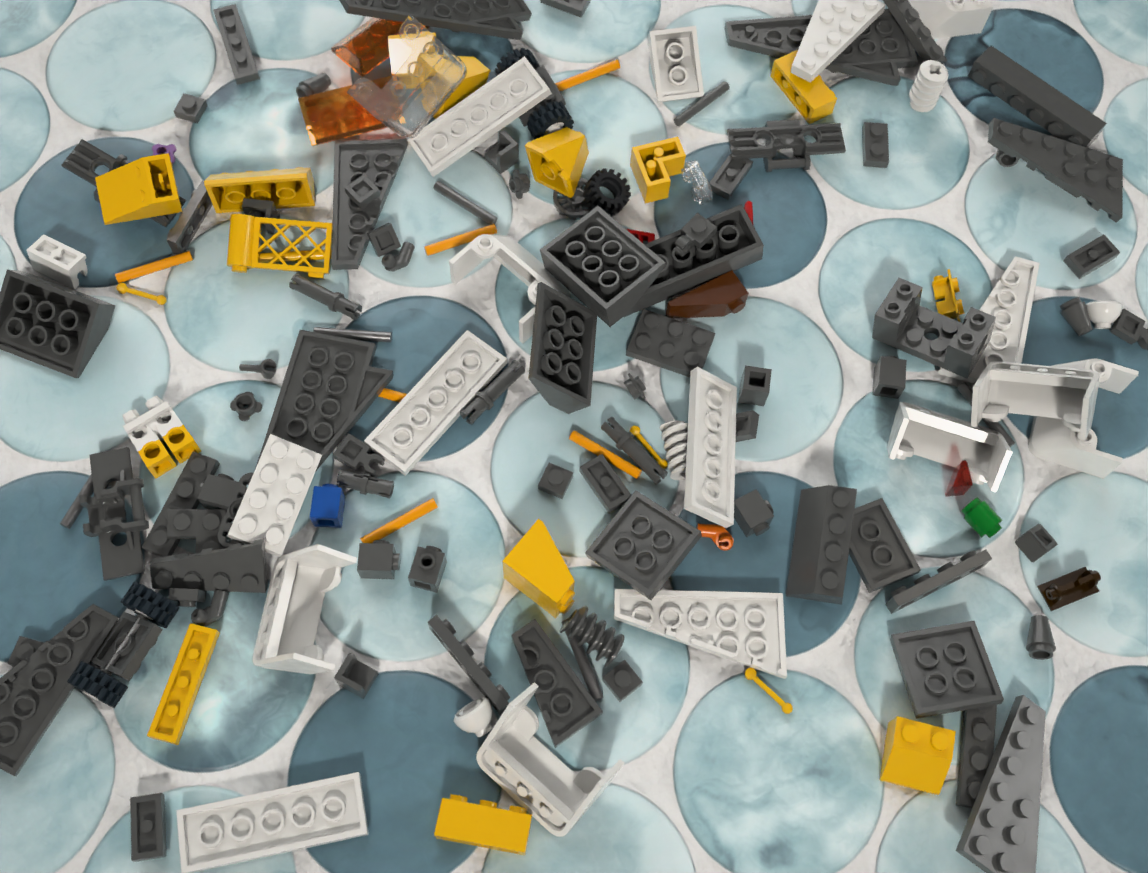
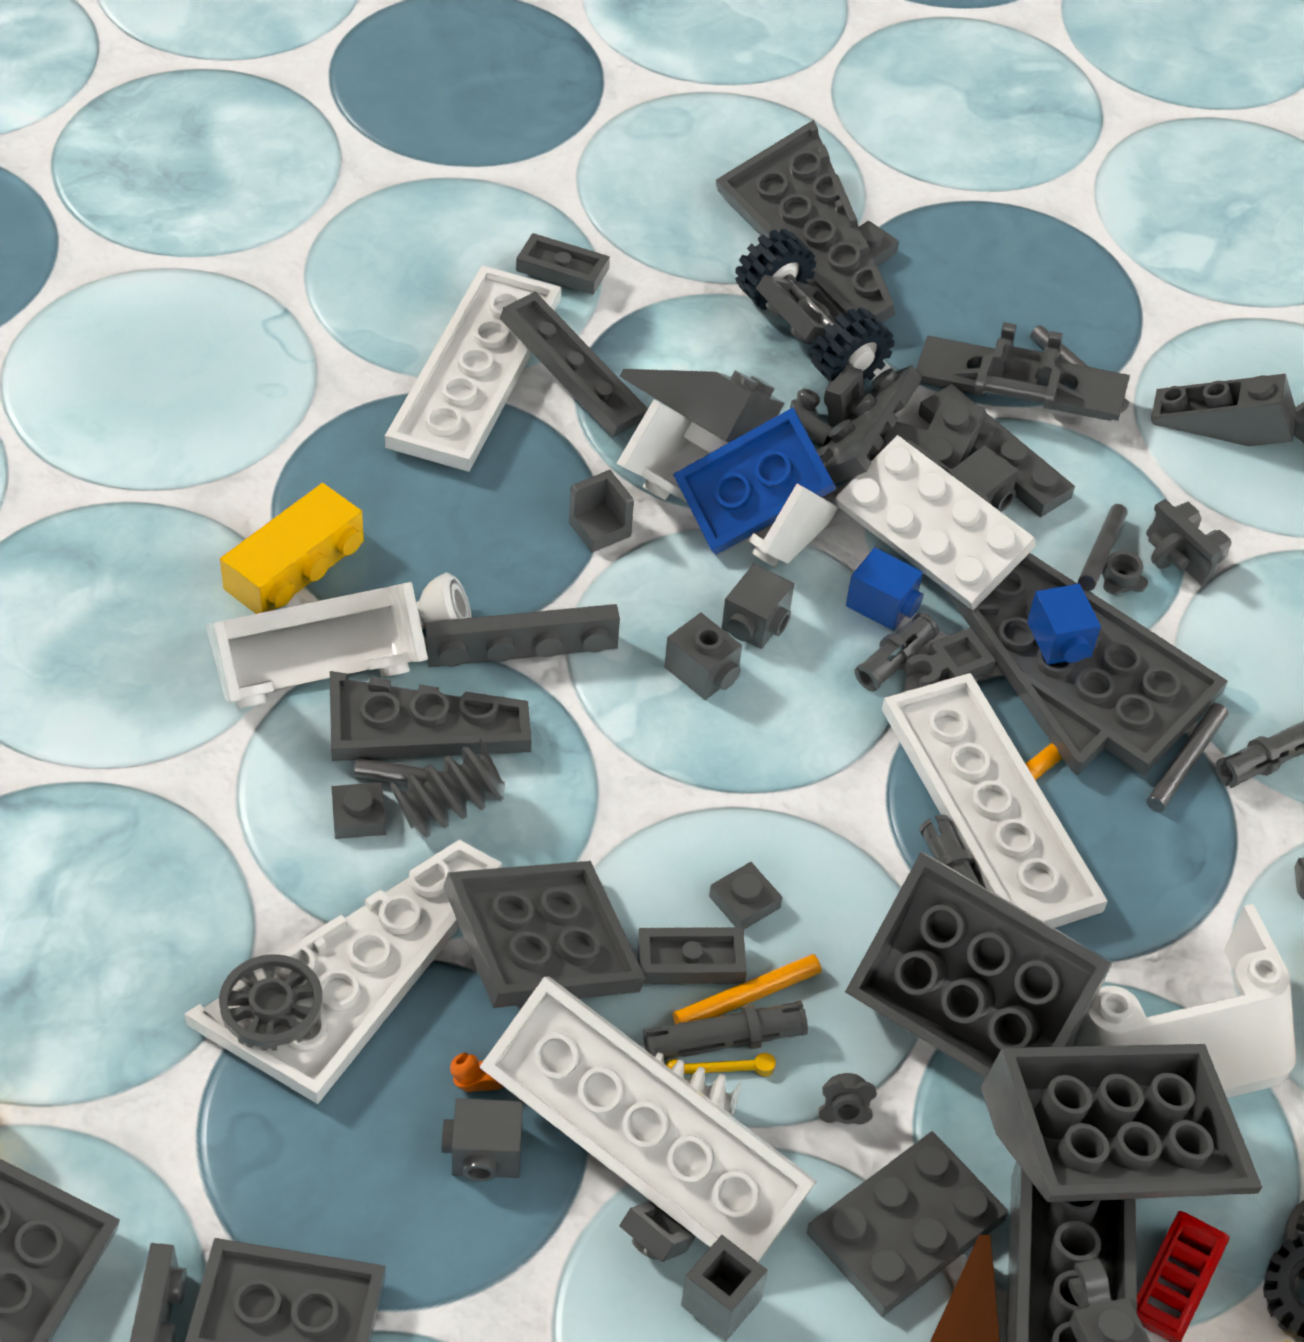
camera: 120 degrees right, 15 degrees down
(89, 401) = (1234, 411): none -> dark grey slope
(151, 429) = (1121, 457): hips -> none
(183, 684) = (717, 348): yellow plate -> none
(211, 385) = (1181, 542): none -> dark grey hips
(235, 418) = (1102, 547): none -> flat silver bar
(241, 661) = (711, 399): none -> dark grey slope
(245, 760) = (573, 364): none -> dark grey plate
(268, 363) = (1182, 617): dark grey hand -> none
(296, 599) = (750, 480): none -> blue plate
(314, 404) = (1063, 624): none -> blue brick
(400, 522) = (806, 669): light orange bar -> none
(540, 571) = (594, 770): yellow slope -> none
(750, 674) = (144, 999): yellow hinge -> none
(758, 638) = (271, 1001): none -> dark grey wheel
(821, 544) = (343, 1206): dark grey slope -> none

